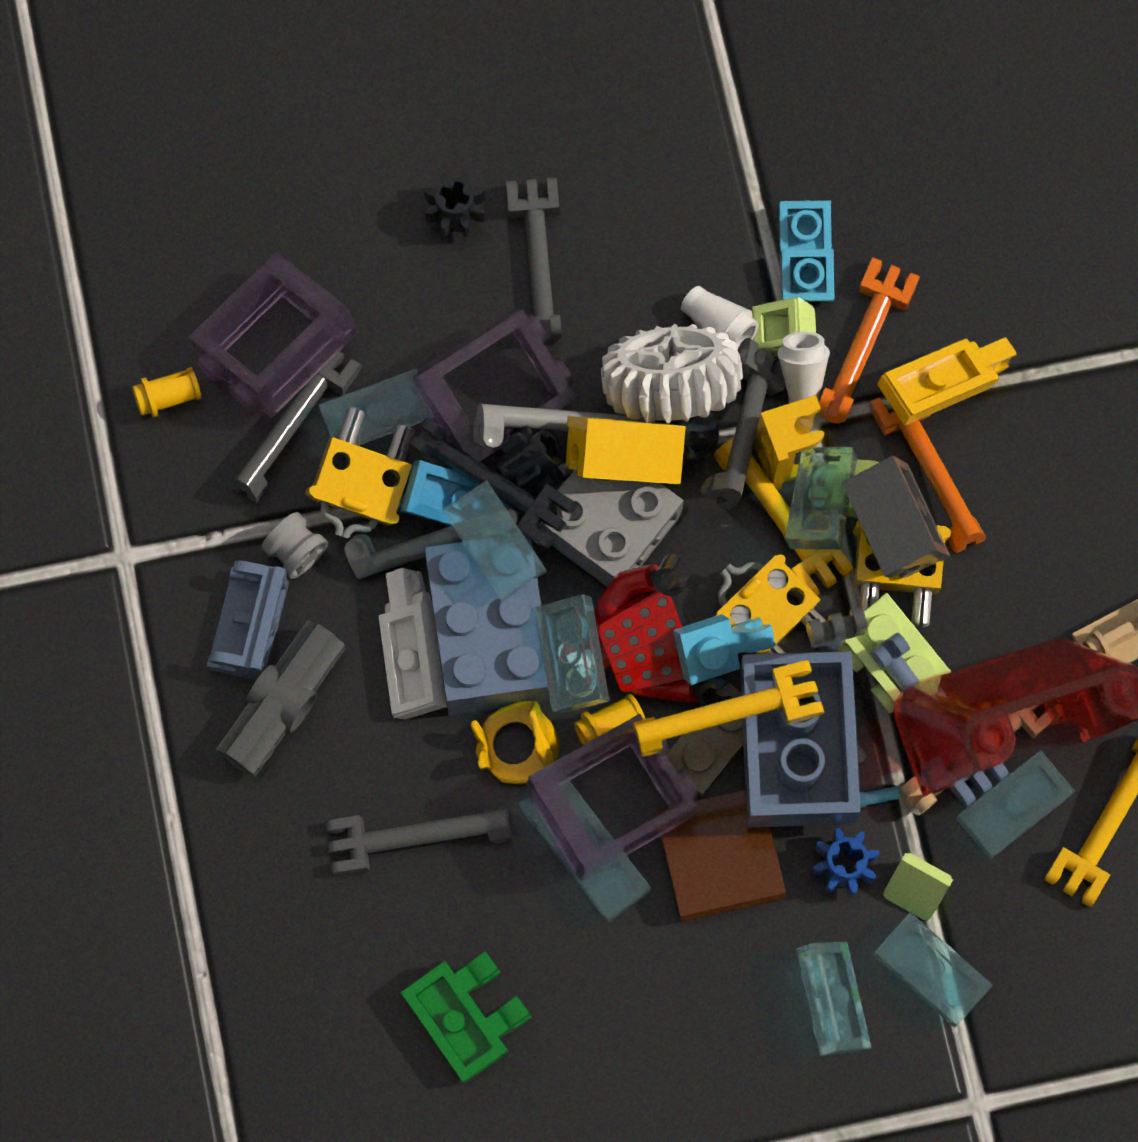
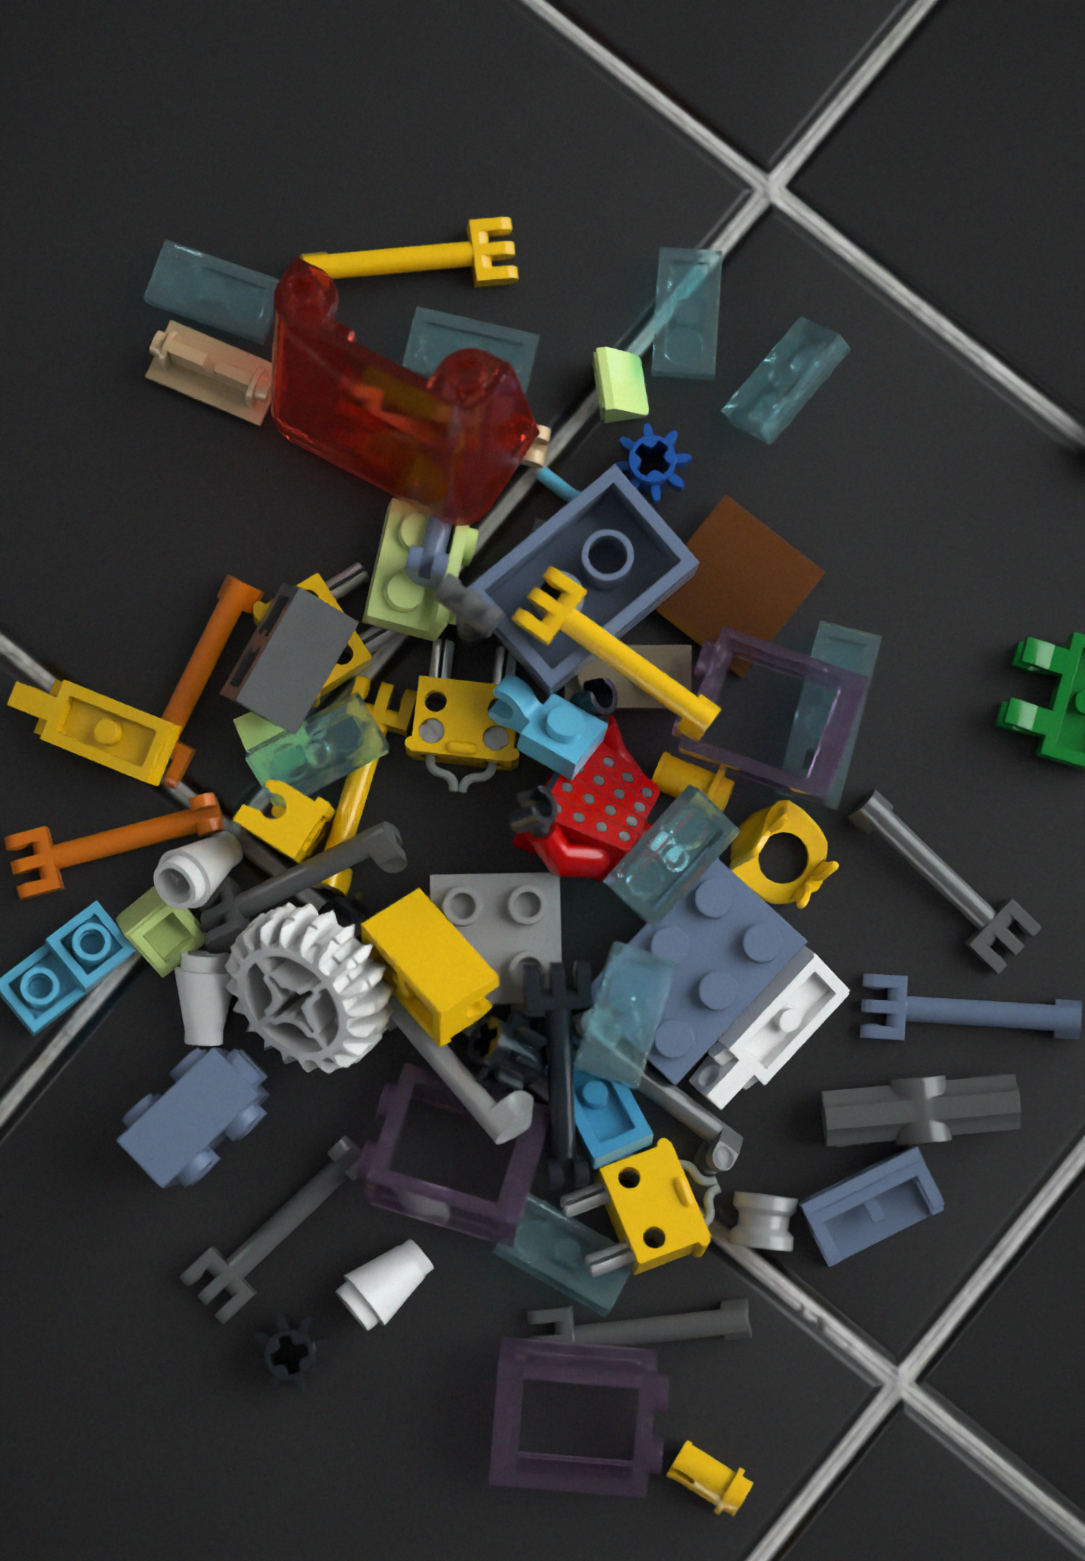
camera: 125 degrees left, 10 degrees up
(355, 741) = (1062, 1018): none -> sand blue hinge
(450, 290) = (384, 1284): none -> white cone
(647, 249) = (212, 1100): none -> sand blue brick

